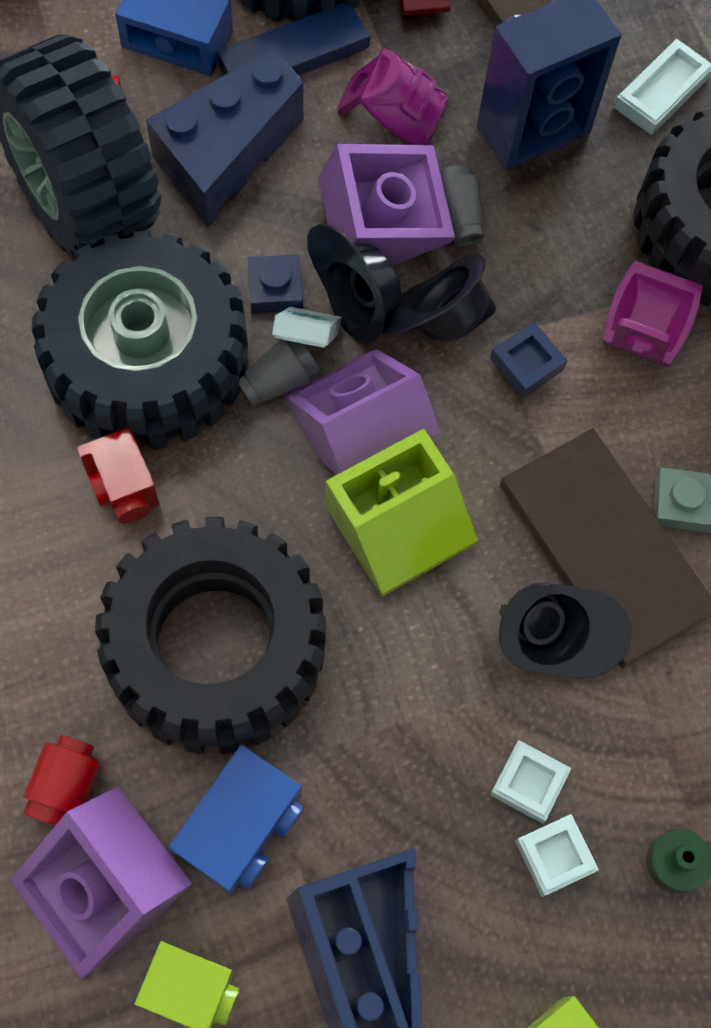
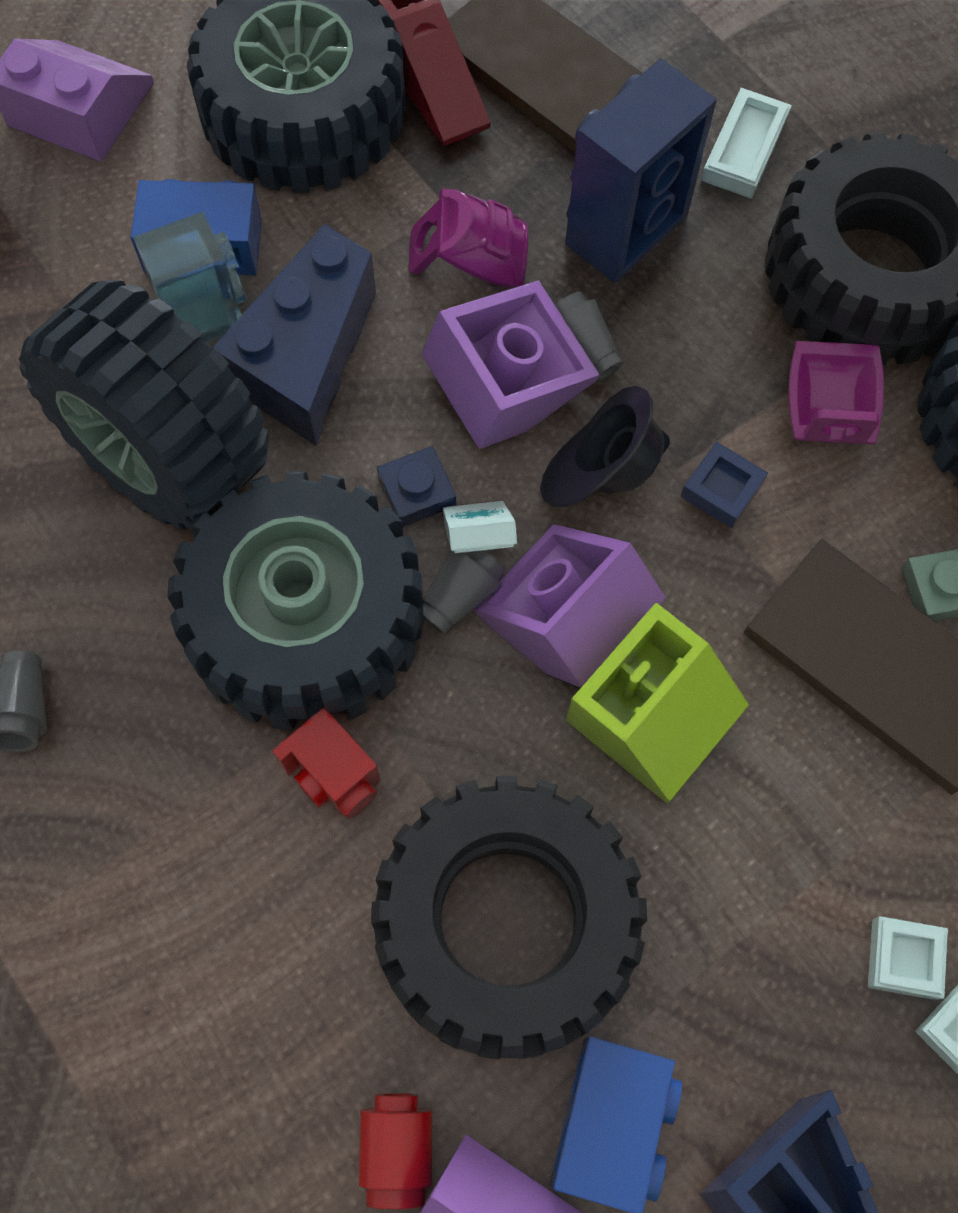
camera: 15 degrees left, 0 degrees up
(149, 59) = (194, 273): none -> clear light blue brick
(304, 42) = (349, 206): dark blue tile -> none
(357, 280) = (511, 458): black piece -> none
(564, 631) = (883, 776): black piece -> none

